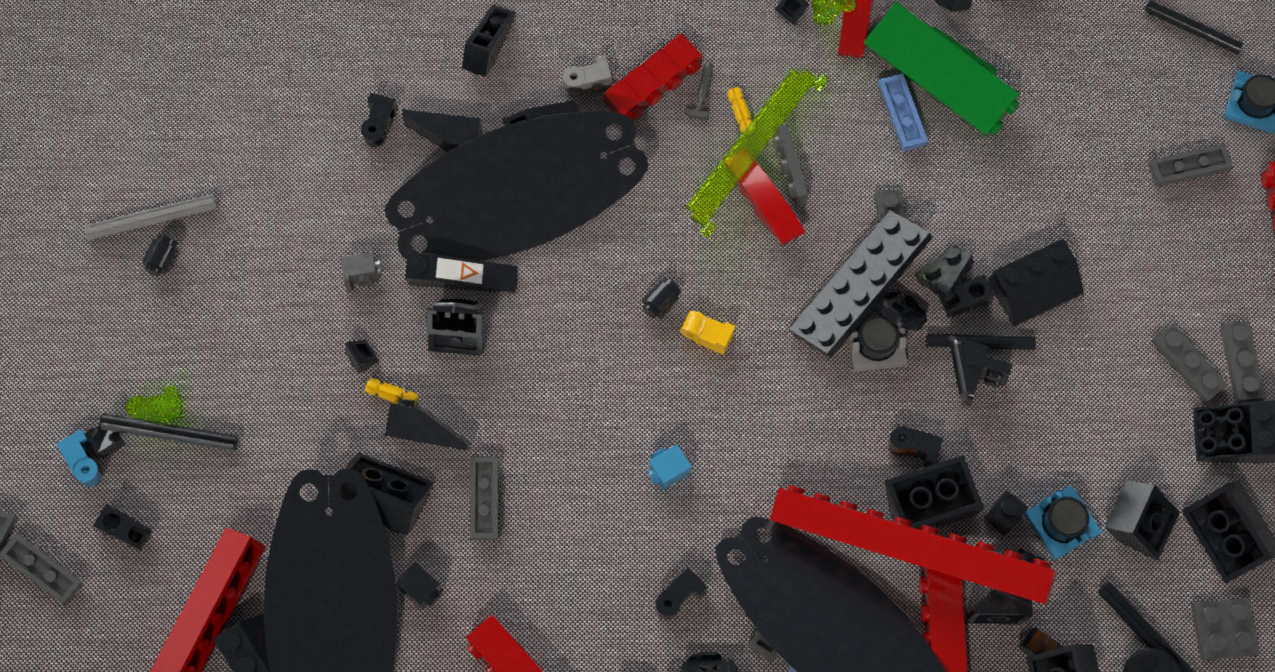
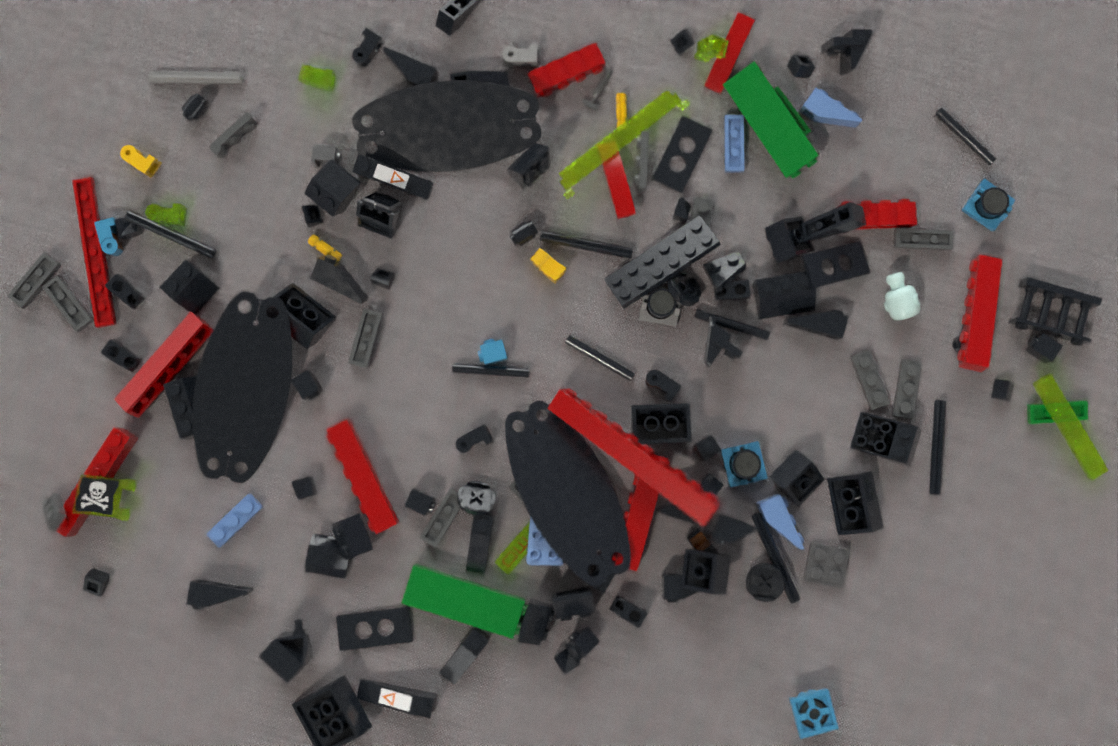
camera: 20 degrees right, 15 degrees up
(62, 490) = (93, 254): none -> red tile
(100, 347) = (135, 158): none -> yellow leg
(138, 619) = (121, 355): none -> black leg
(214, 496) = (189, 287): none -> black slope
(223, 277) = (232, 135): none -> dark grey plate
(320, 174) = (317, 78): none -> clear neon green leg
(383, 307) = (332, 188): none -> black slope
(483, 412) = (382, 278): none -> black slope
(644, 206) = (530, 165): none -> black slope
(672, 494) = (490, 370): none -> black piece
(749, 291) = (586, 244): none -> black axle
(818, 435) = (600, 358): none -> black piece
(822, 174) = (700, 136): none -> black piece
(863, 213) = (682, 210): none -> black slope
(1005, 40) = (824, 109): none -> medium blue slope
(1016, 211) = (788, 239): none -> black slope
(1071, 169) = (834, 222): none -> black slope
(1072, 607) = (727, 529): none -> black slope
(1074, 246) = (819, 278): none -> black piece
(1104, 306) = (827, 324): none -> black slope
(1118, 152) = (888, 214): none -> red brick
(1141, 584) = (776, 515): none -> medium blue slope
(1192, 247) = (902, 299): none -> light aqua piece

